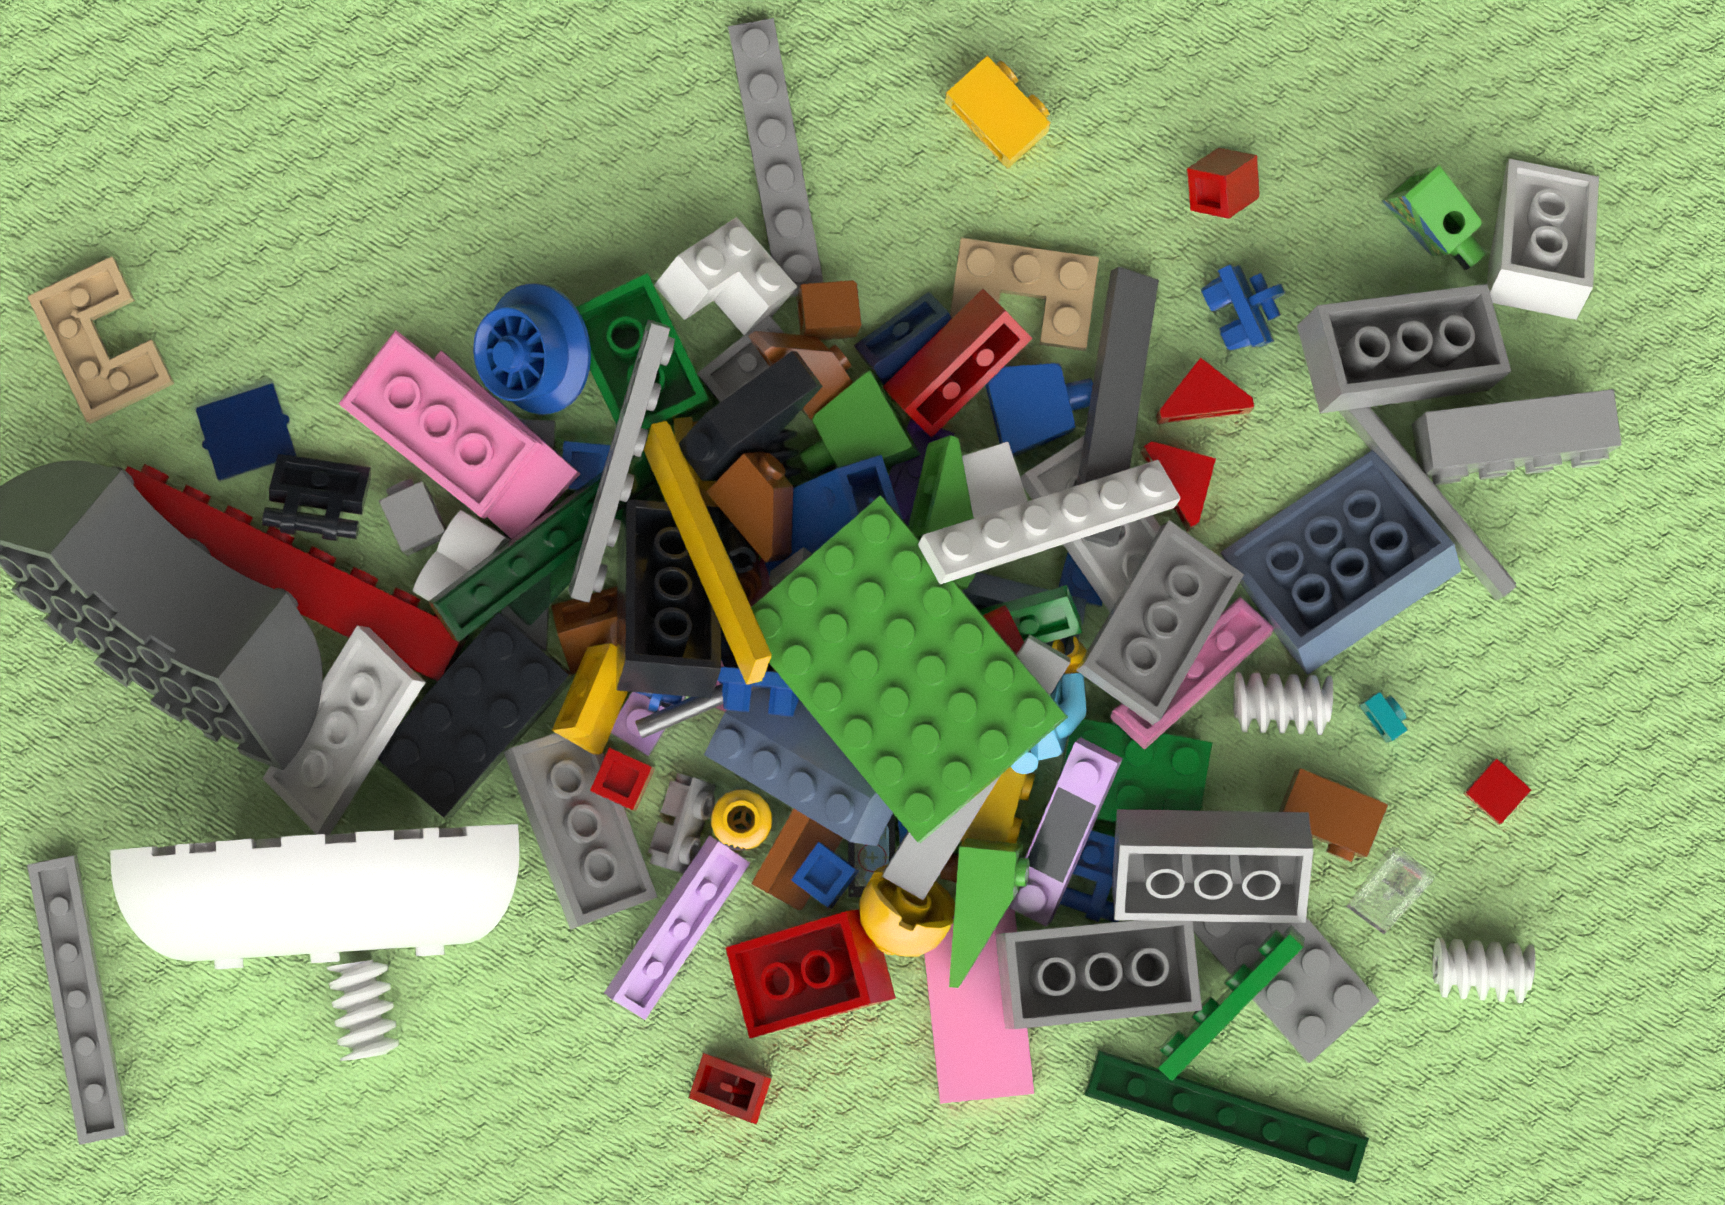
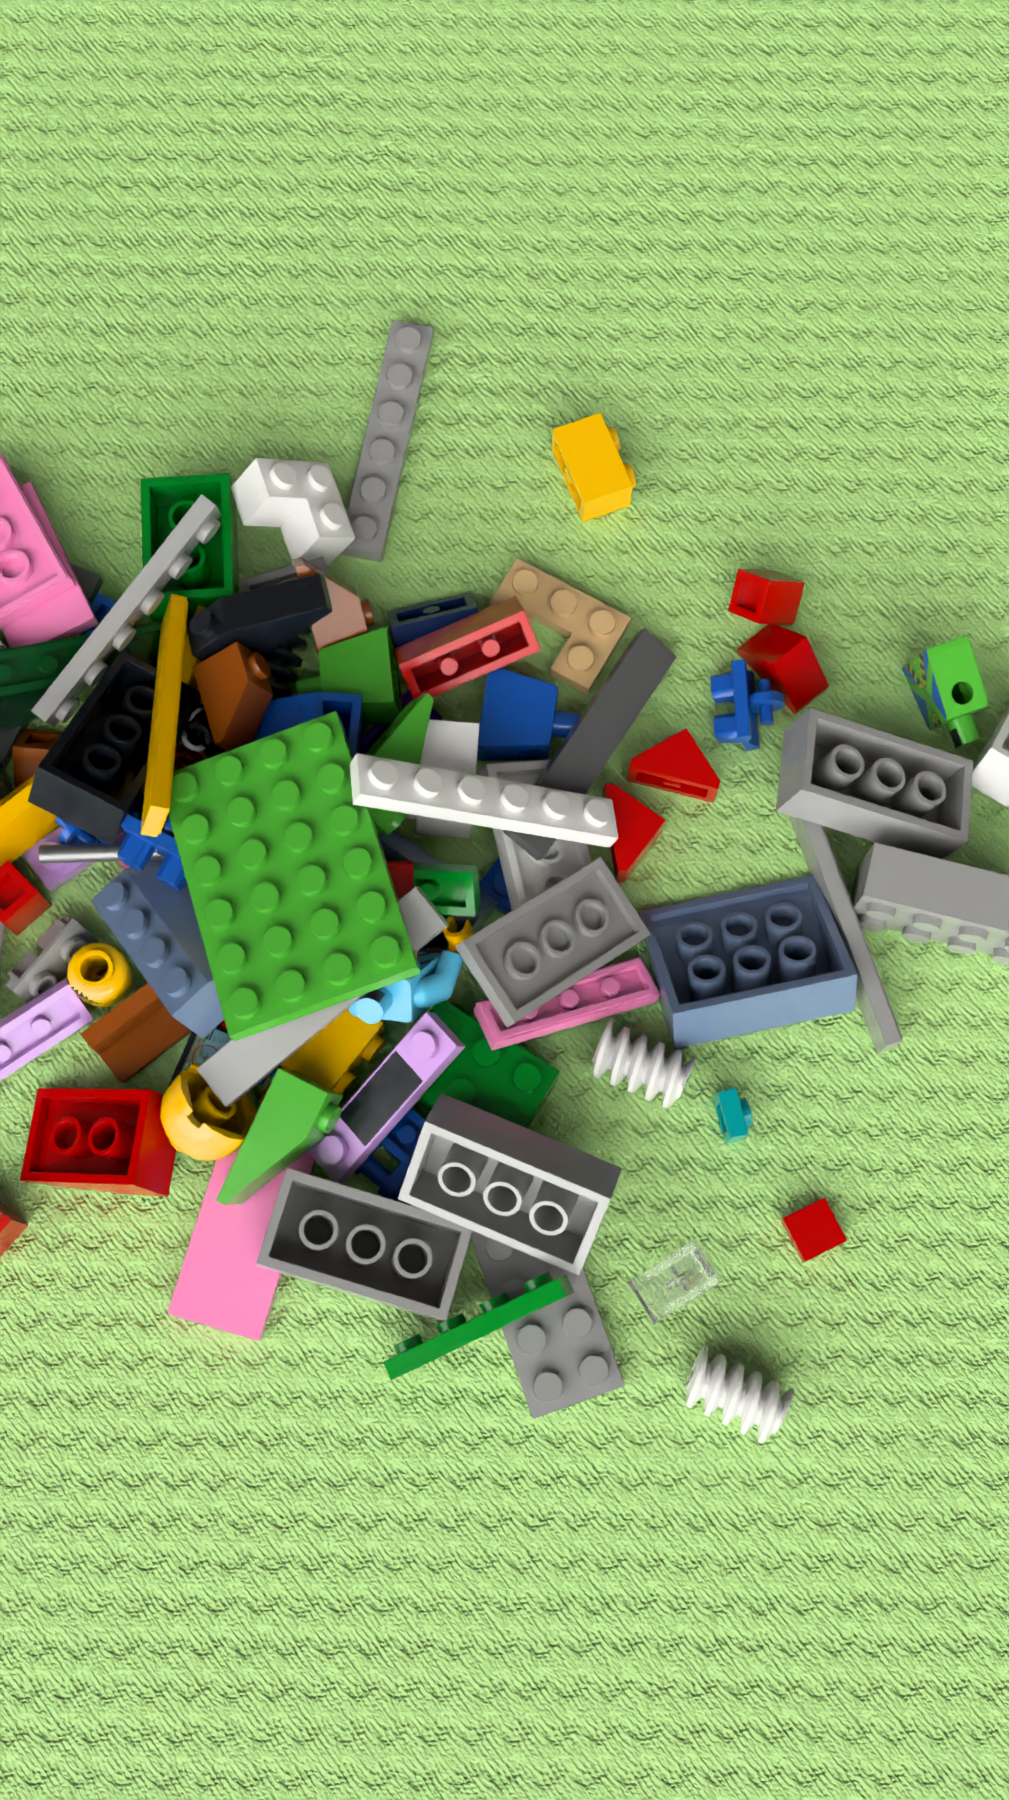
camera: 25 degrees right, 10 degrees down
(534, 349) = (101, 502): blue piece -> none
(825, 875) = (153, 1055): blue plate -> none
(829, 310) = (376, 571): dark orange panel -> none
(1226, 1116) = (435, 1441): dark green tile -> none
(1267, 246) = (787, 662): none -> red slope
(1336, 814) = (650, 1188): dark orange brick -> none

